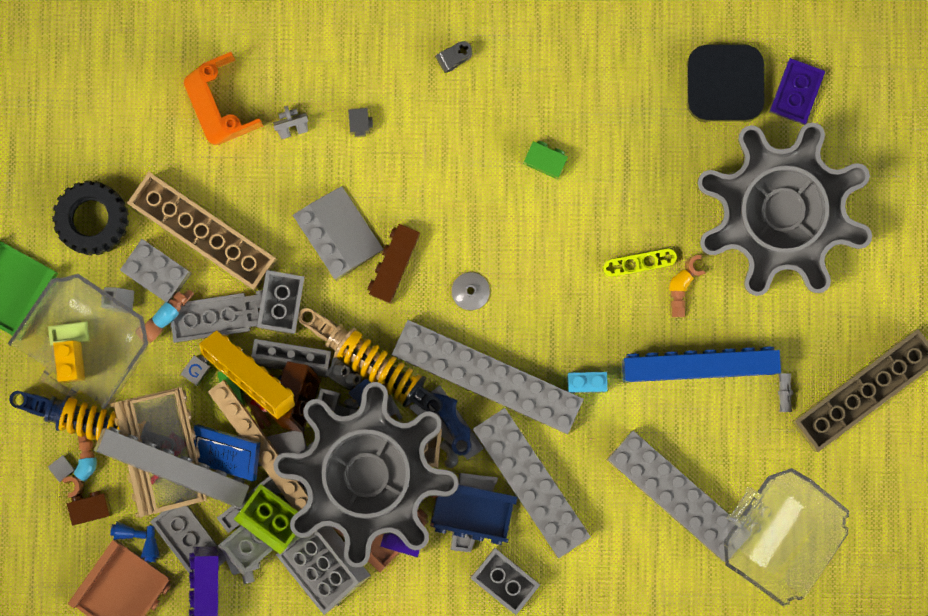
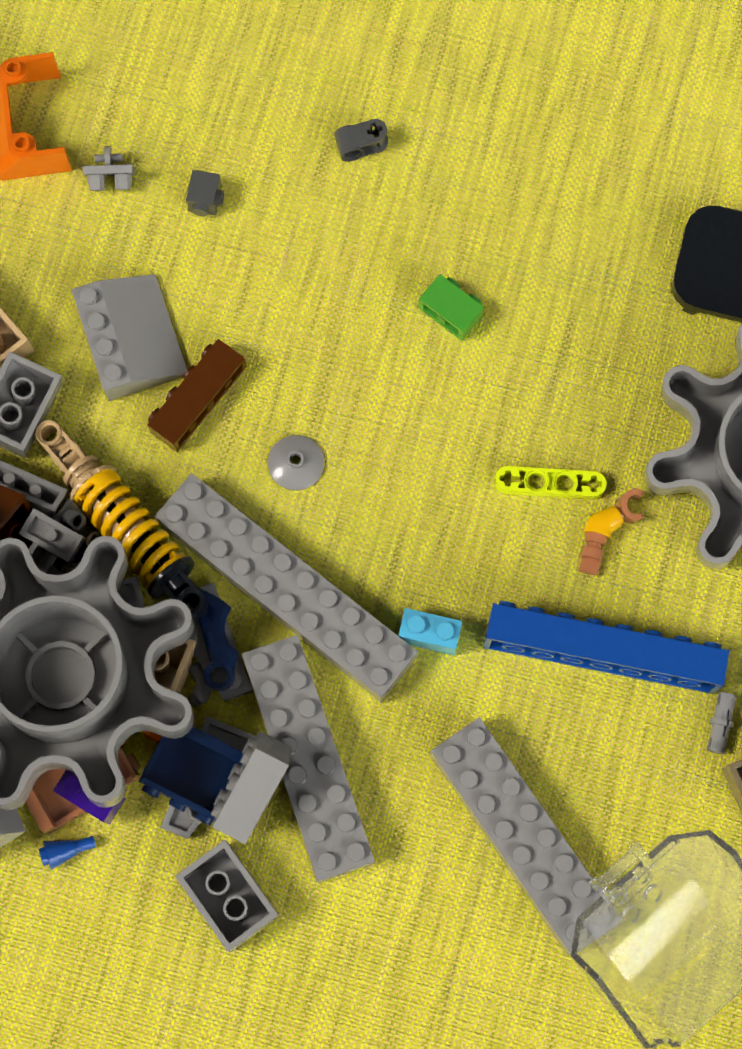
camera: 15 degrees right, 10 degrees down
(331, 385) = (52, 535): none -> light grey plate
(391, 581) = (58, 852): none -> blue cone
(504, 512) = (250, 786): none -> light grey brick

